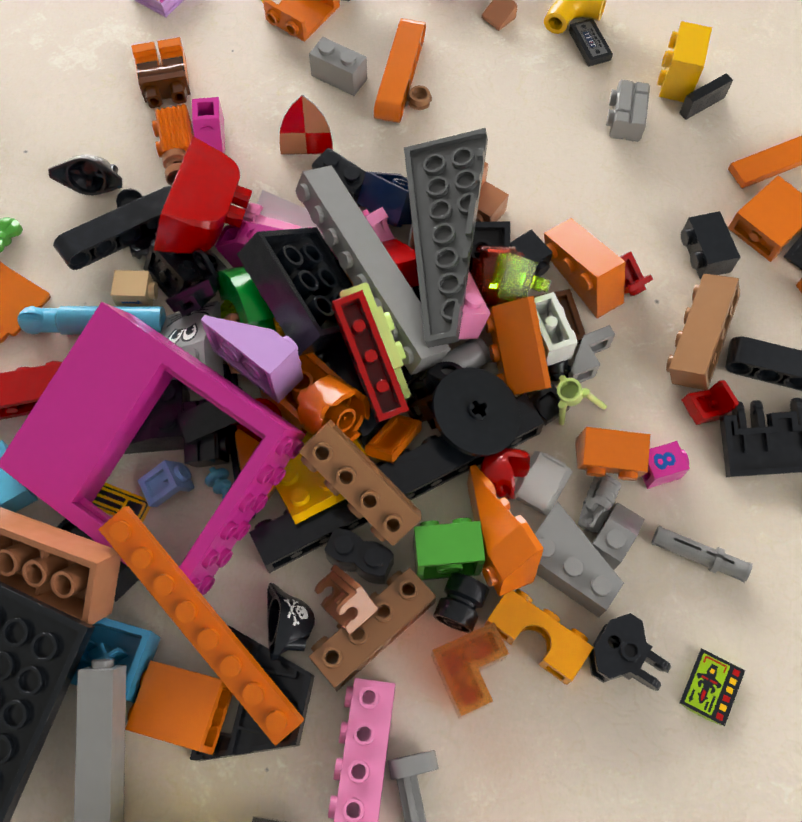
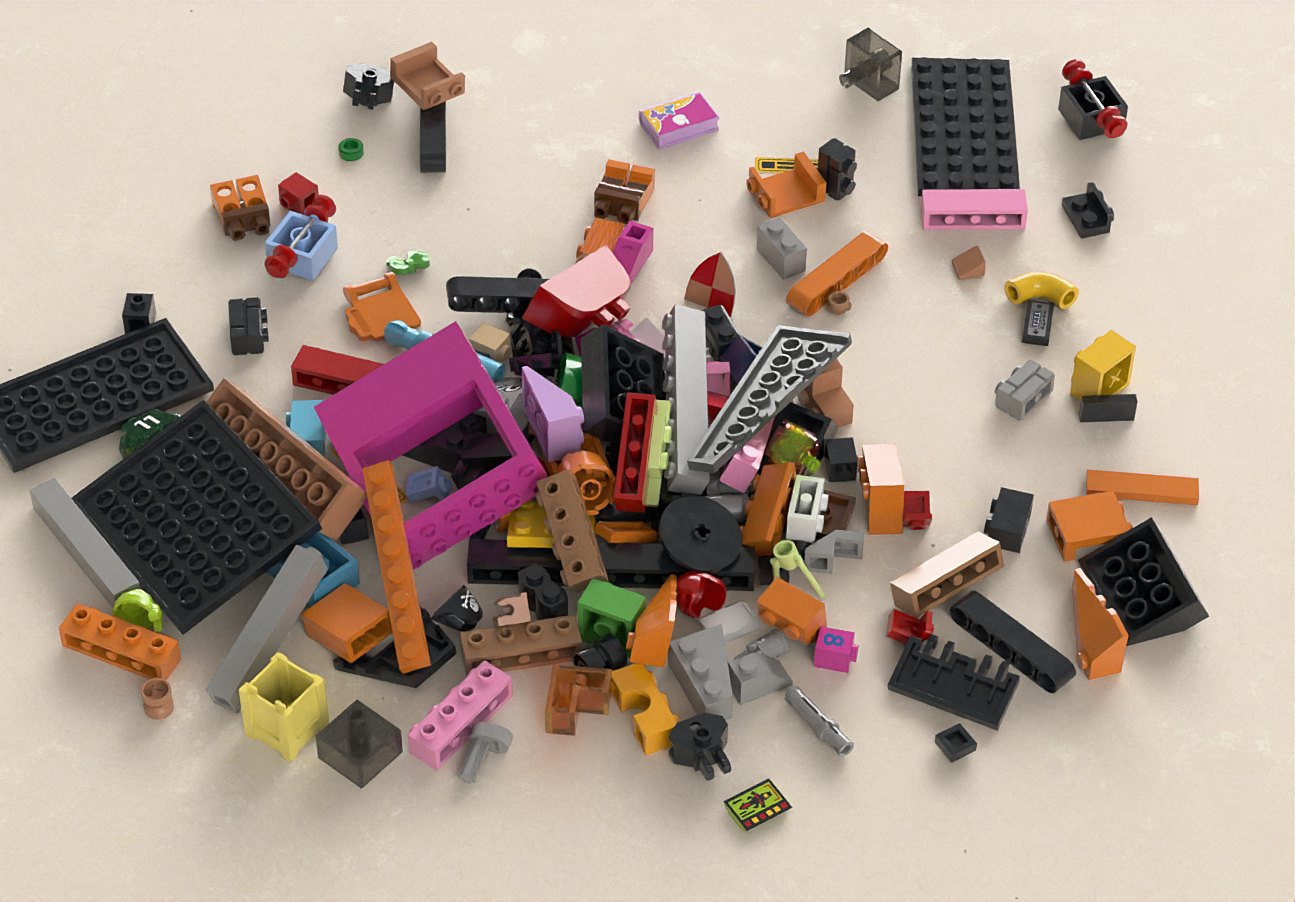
camera: 30 degrees right, 20 degrees down
(87, 175) = (506, 245): black hat -> none

